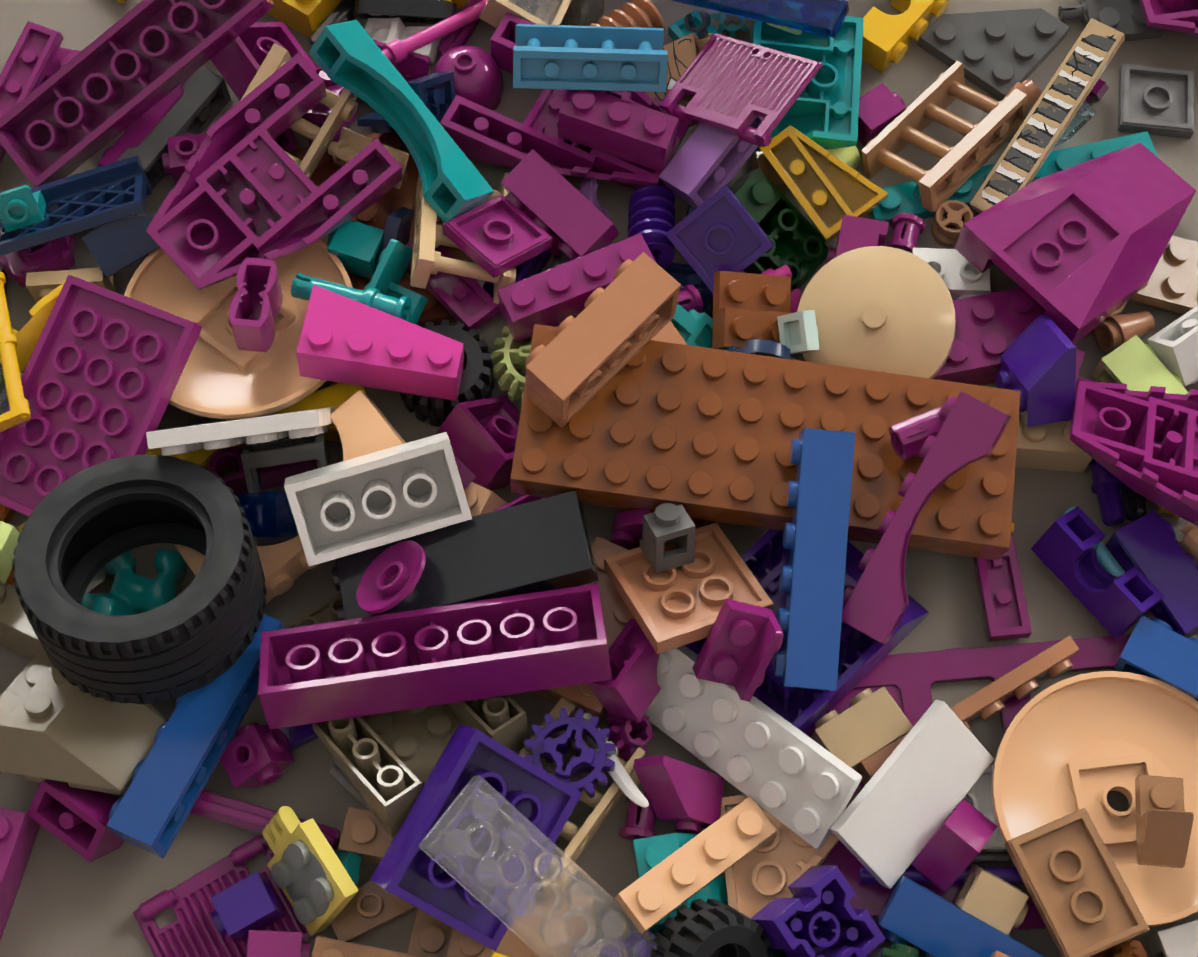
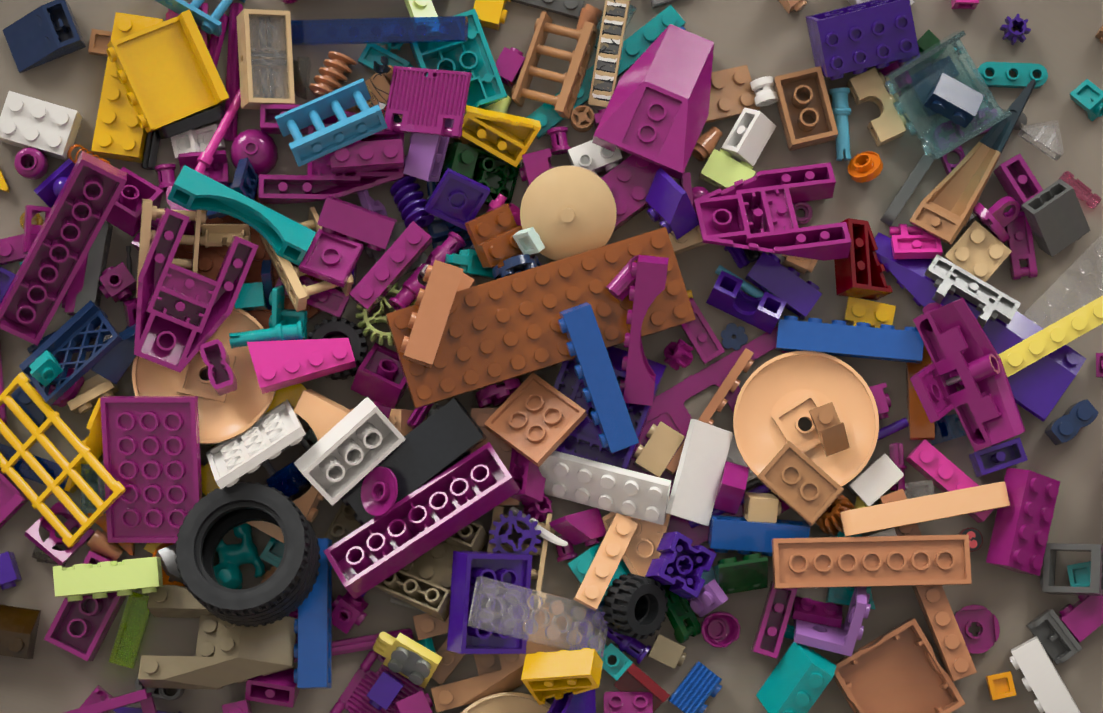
camera: 30 degrees left, 15 degrees up
(668, 526) = (510, 395): dark grey brick -> none
(739, 647) = (579, 442): magenta bracket -> none
(954, 604) = (678, 354): none -> magenta gear
(1053, 609) = (738, 332): none -> dark blue plant

